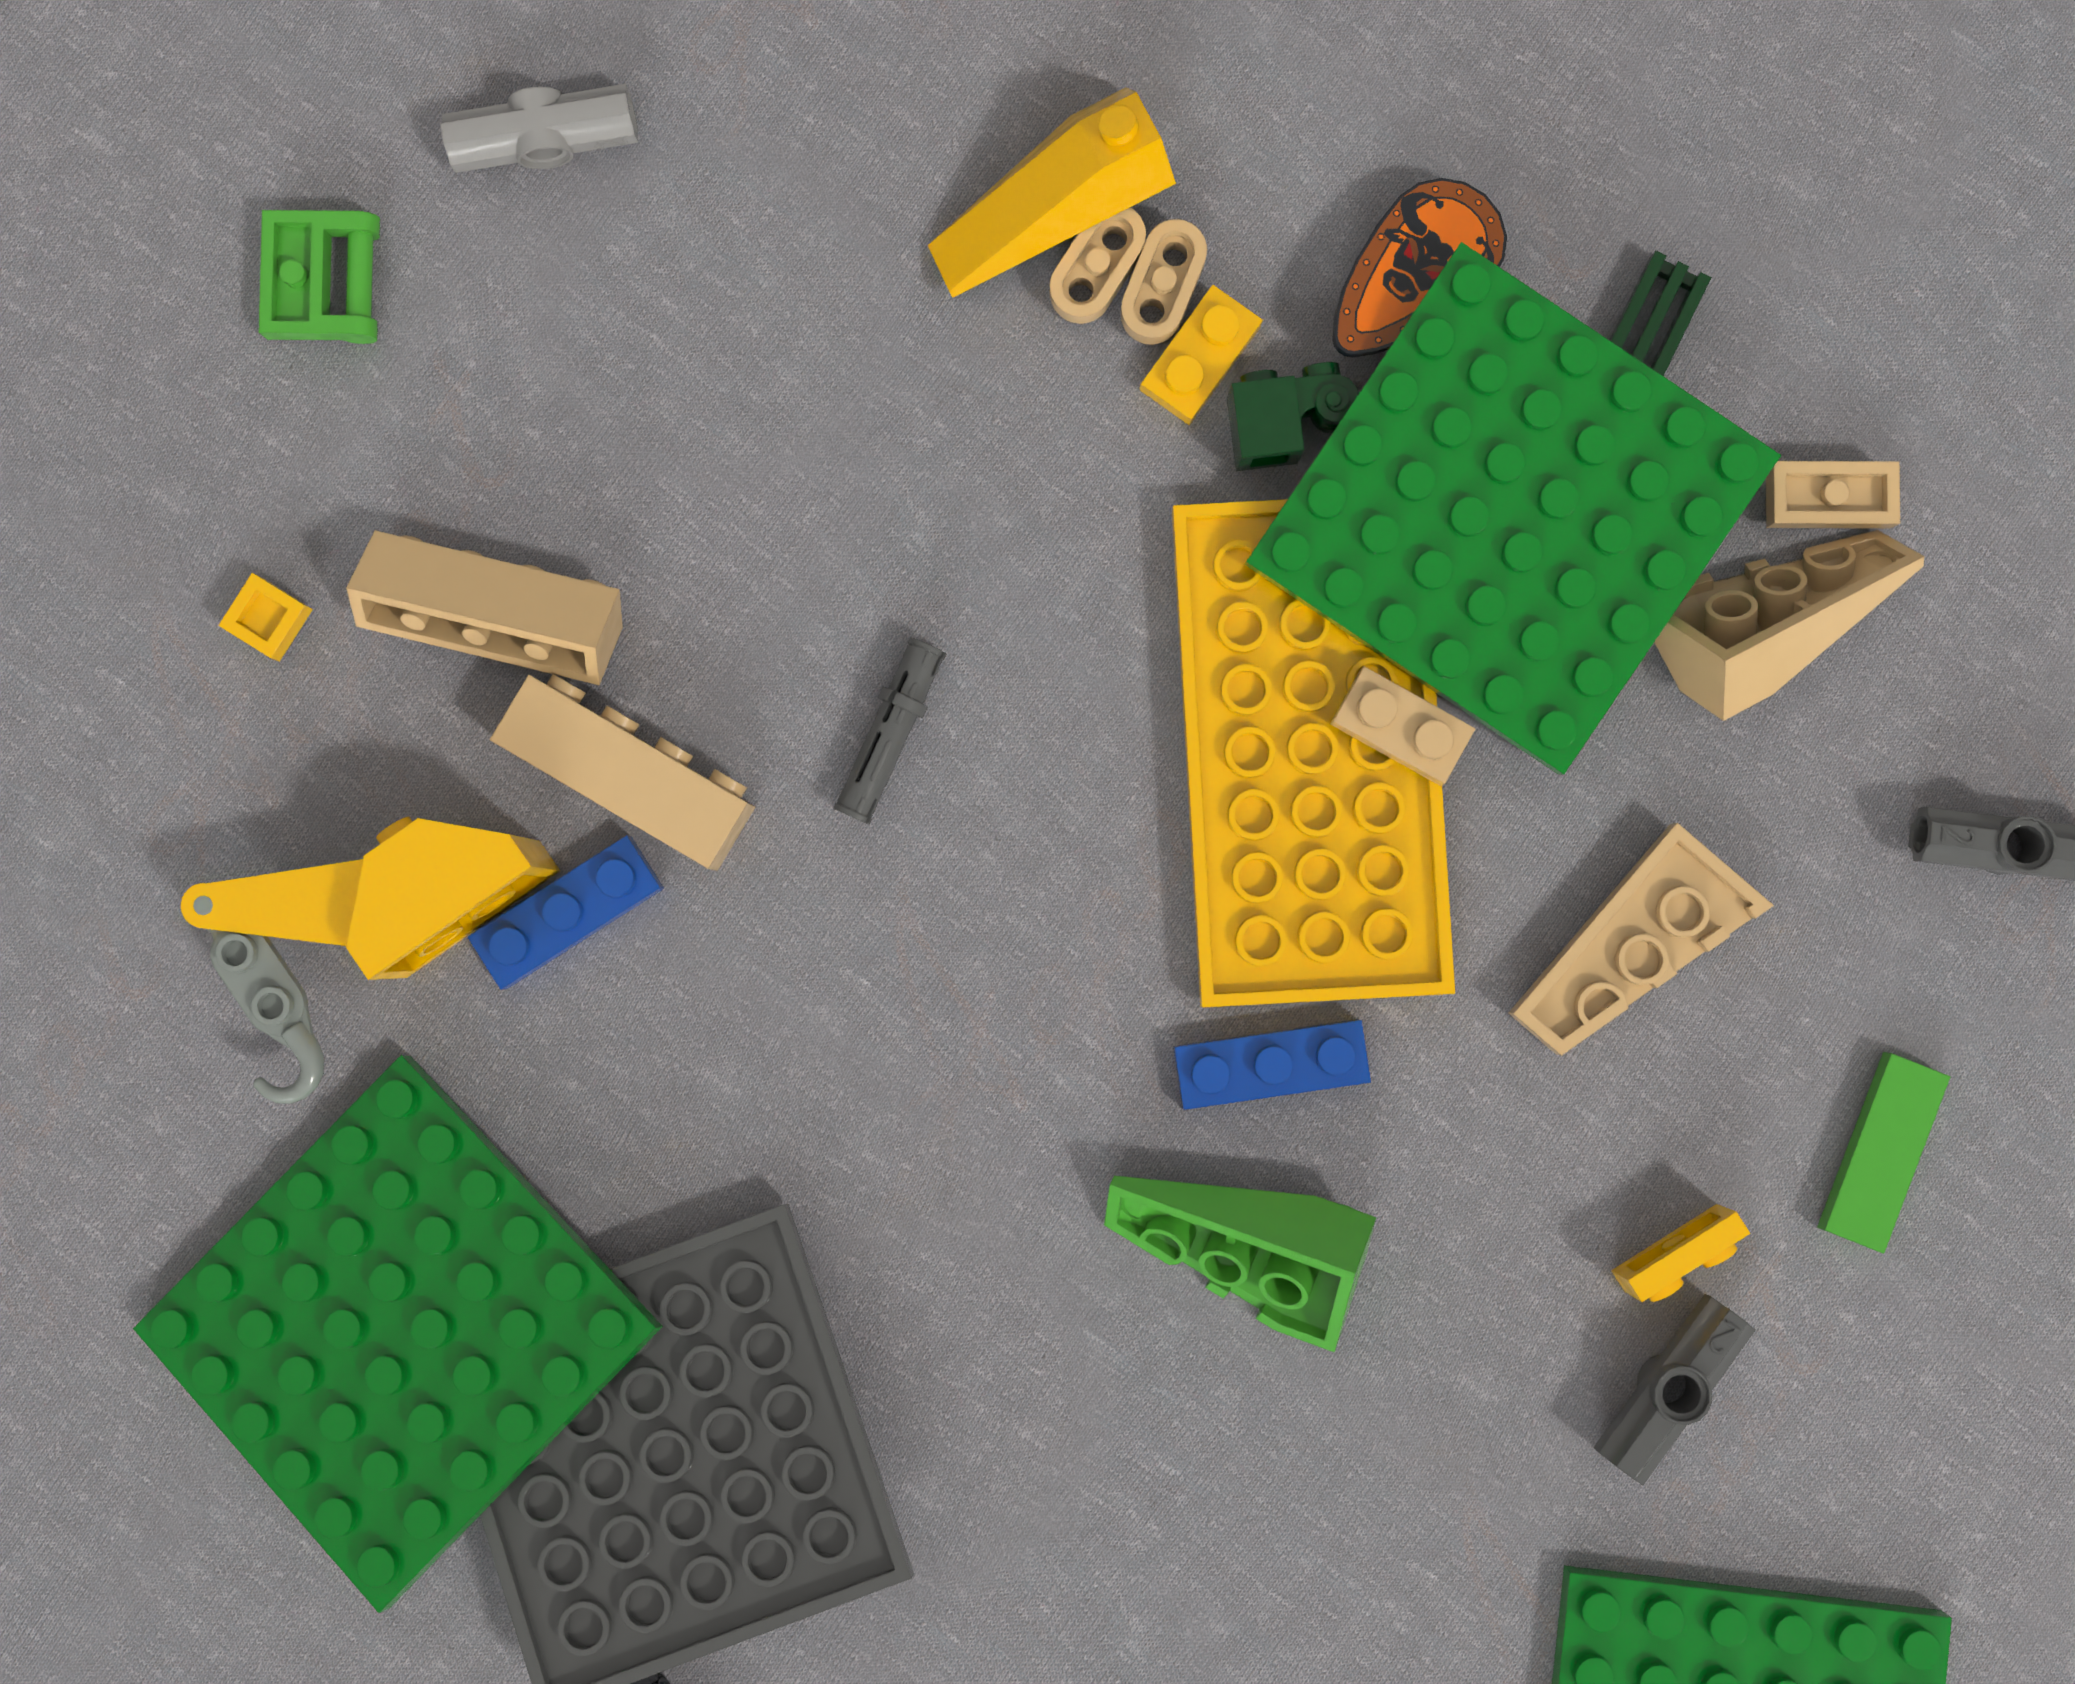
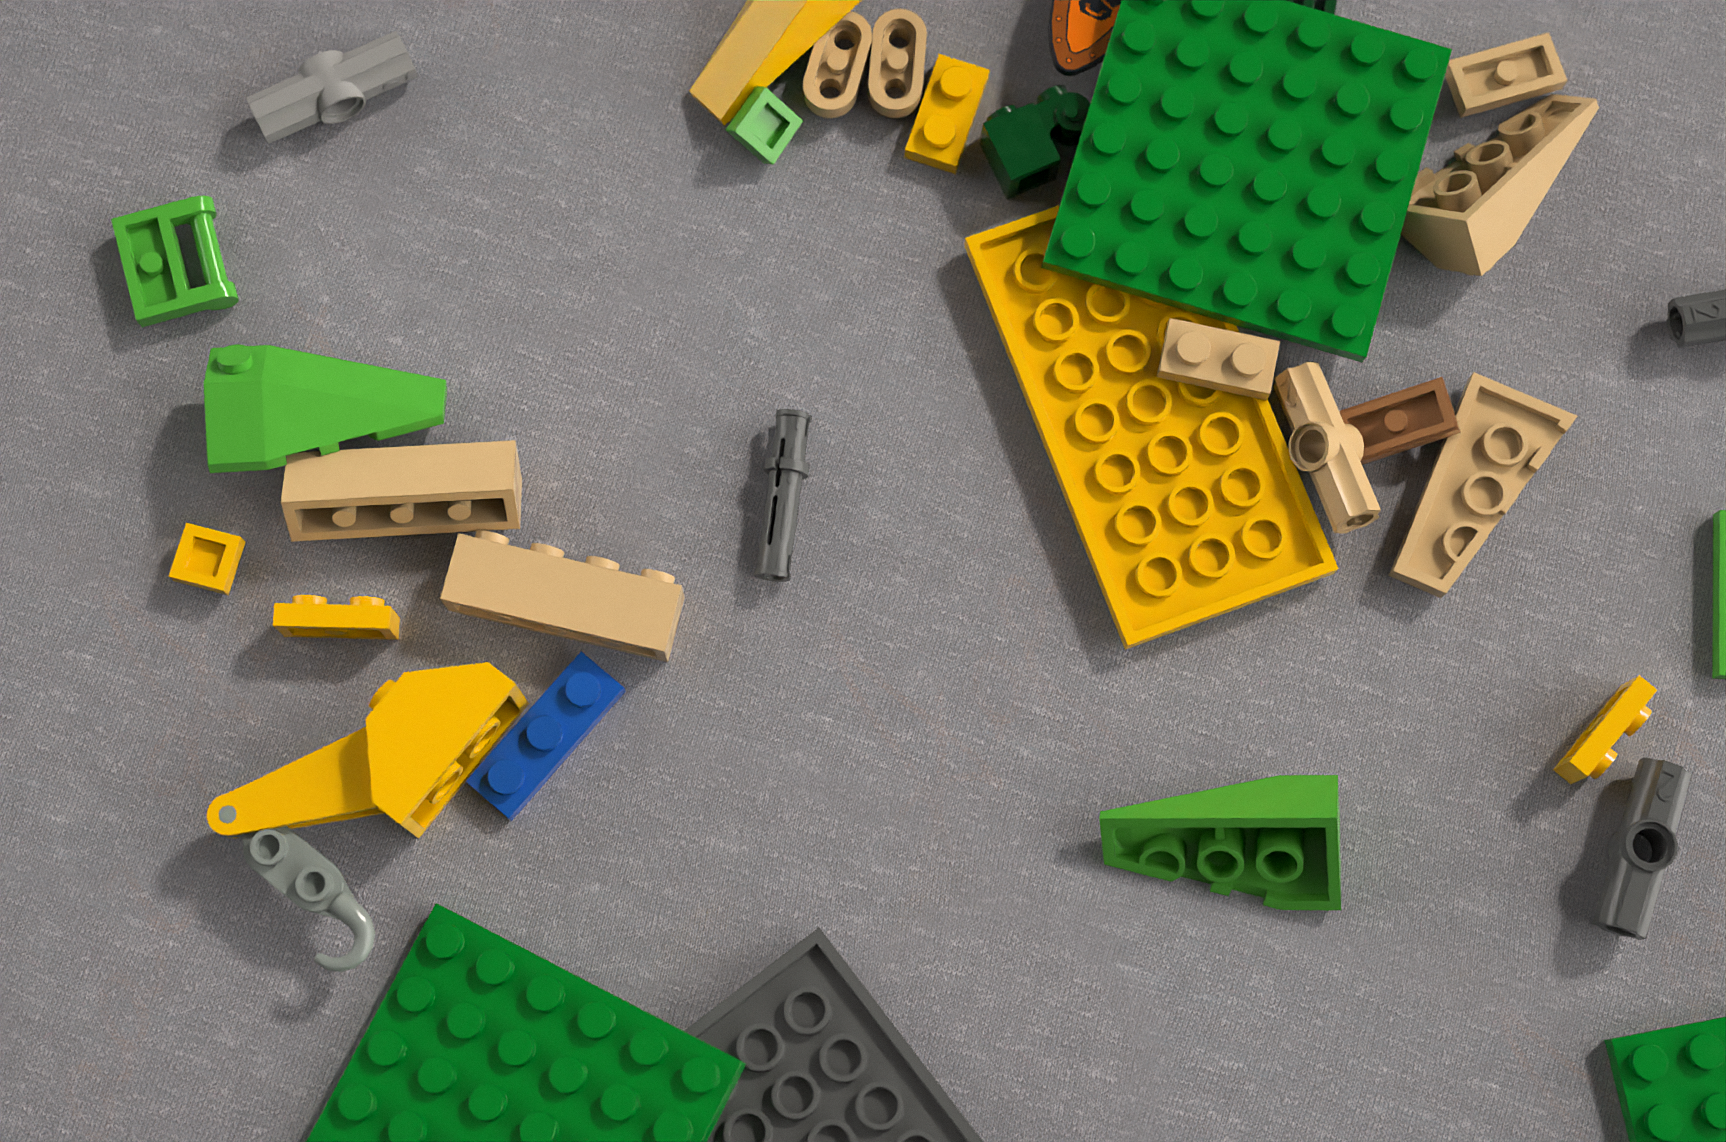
camera: 25 degrees left, 10 degrees down
(357, 713) = (314, 618): none -> yellow plate
(387, 474) = (289, 401): none -> bright green wedge
(995, 311) = (764, 125): none -> plate
(1271, 1064) = (1202, 680): blue plate -> none
(1487, 858) = (1326, 447): none -> tan piece
(1574, 852) = (1403, 419): none -> medium nougat plate

